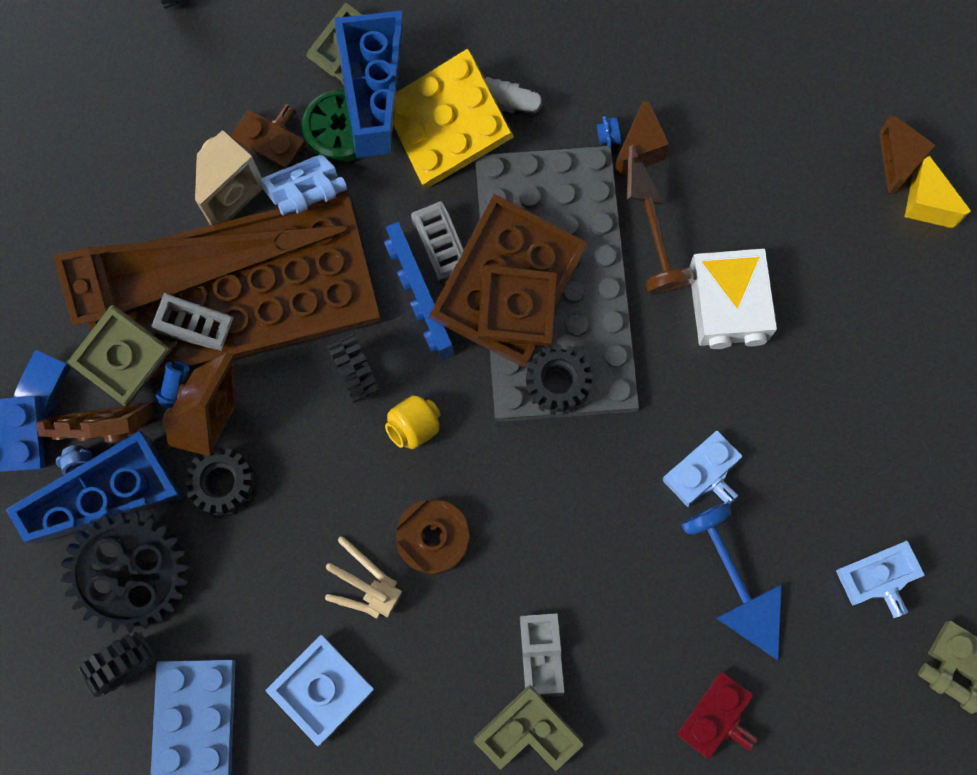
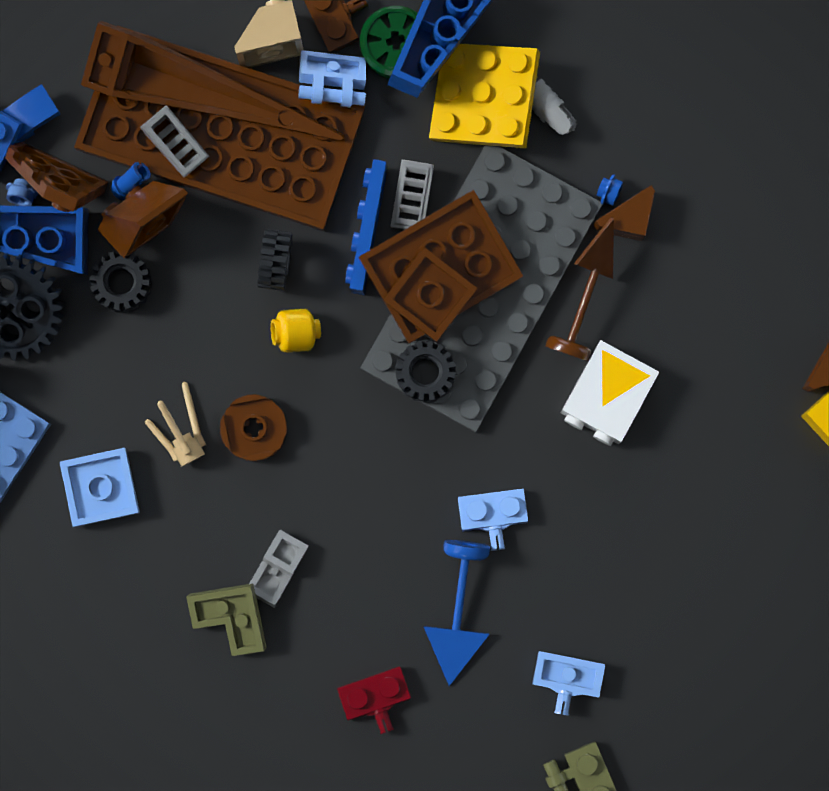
camera: 30 degrees right, 10 degrees up
(119, 355) = (102, 133): olive plate -> none

